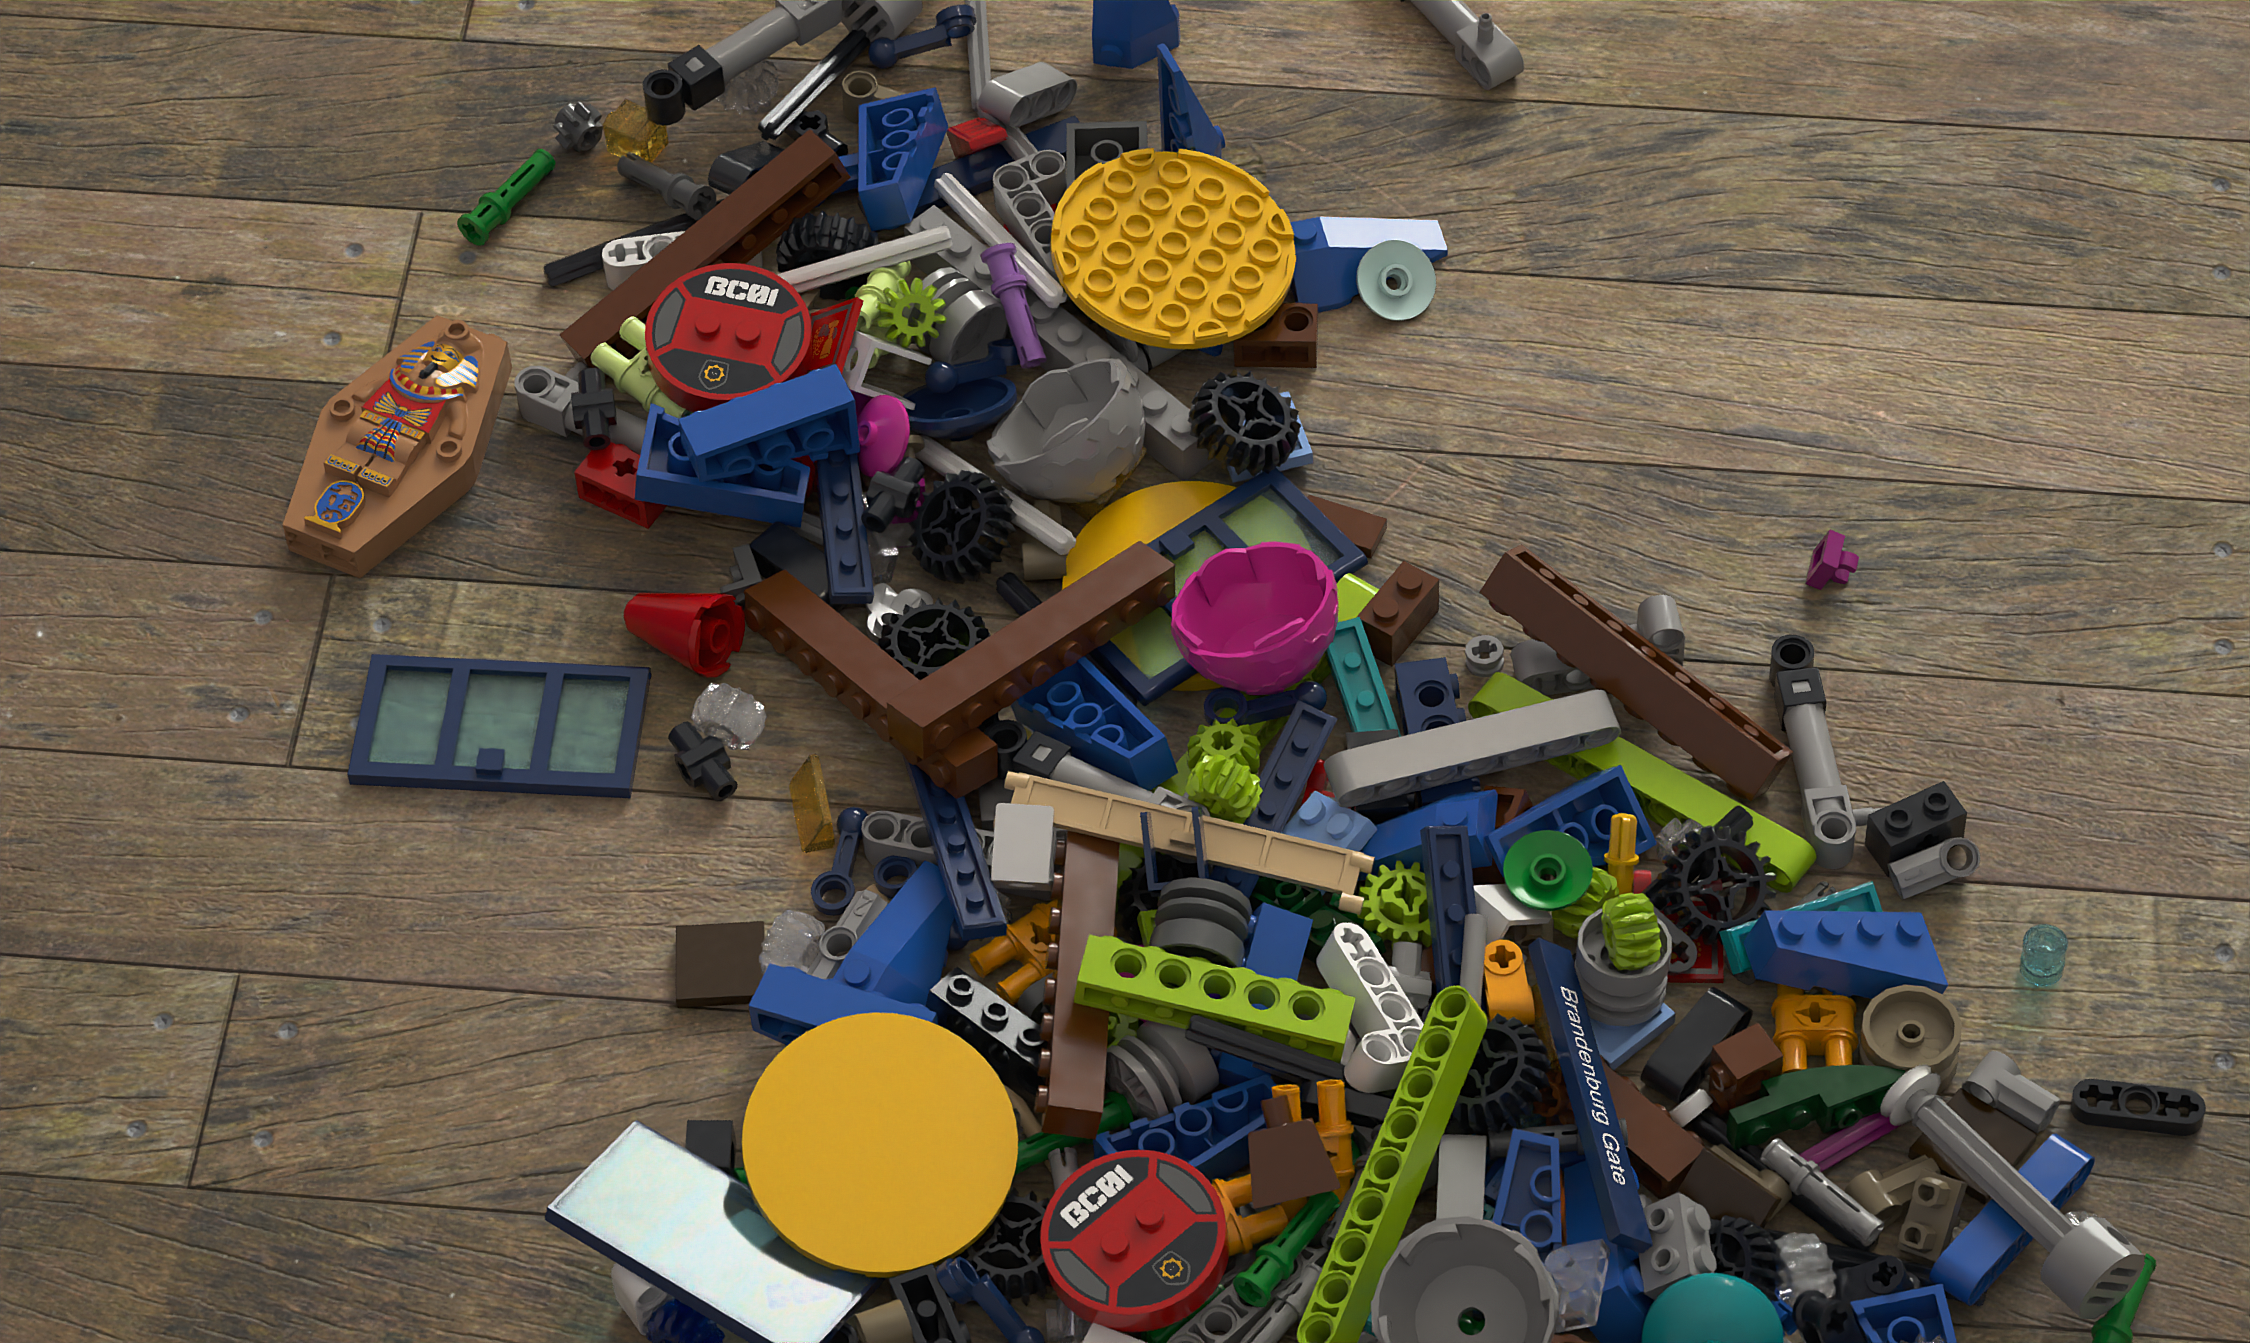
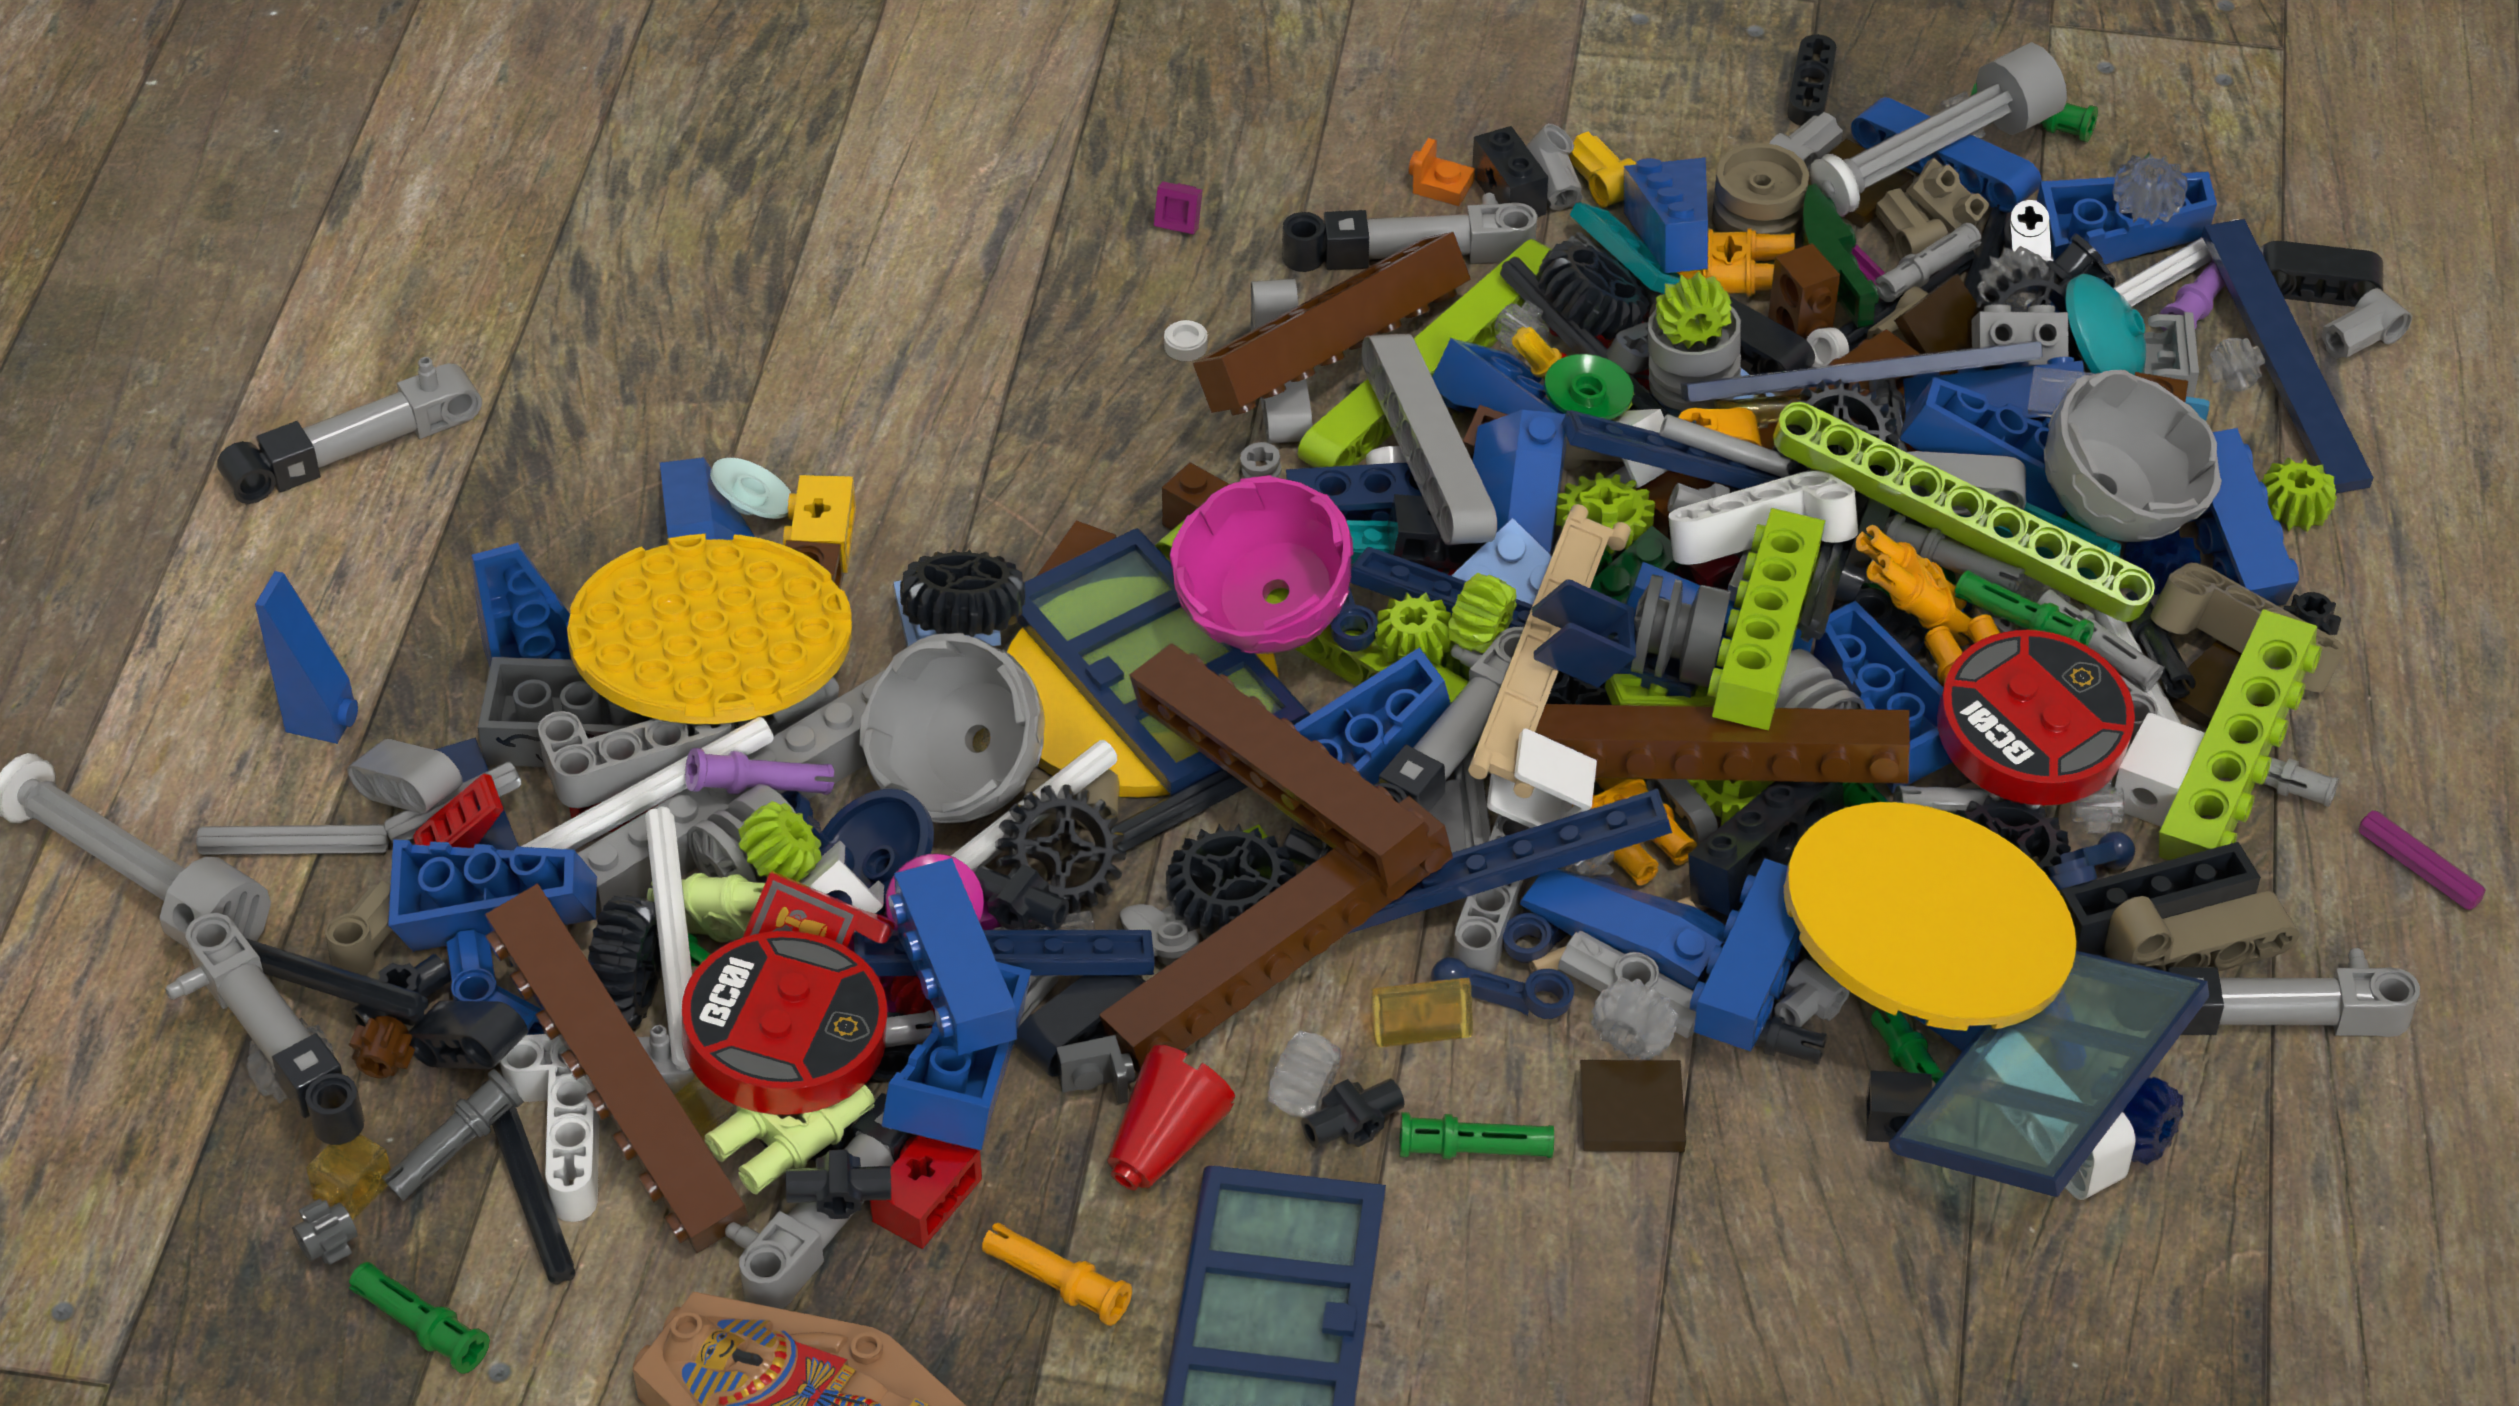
camera: 90 degrees left, 5 degrees down
(532, 589) = (1076, 1281): none -> light orange pin
(678, 831) = (1449, 1136): none -> green pin
(746, 127) = (381, 1047): none -> reddish brown gear
(951, 23) = (277, 923): dark blue piece -> none
(1287, 1157) = (1959, 578): reddish brown torso -> none
(1360, 336) = (823, 512): none -> yellow brick
(1647, 582) = (1185, 340): none -> white tile
(1920, 768) = (1439, 177): none -> orange bracket
(1951, 910) = (1600, 168): none -> yellow piece
(2043, 954) = (1655, 106): clear light blue wheel -> none

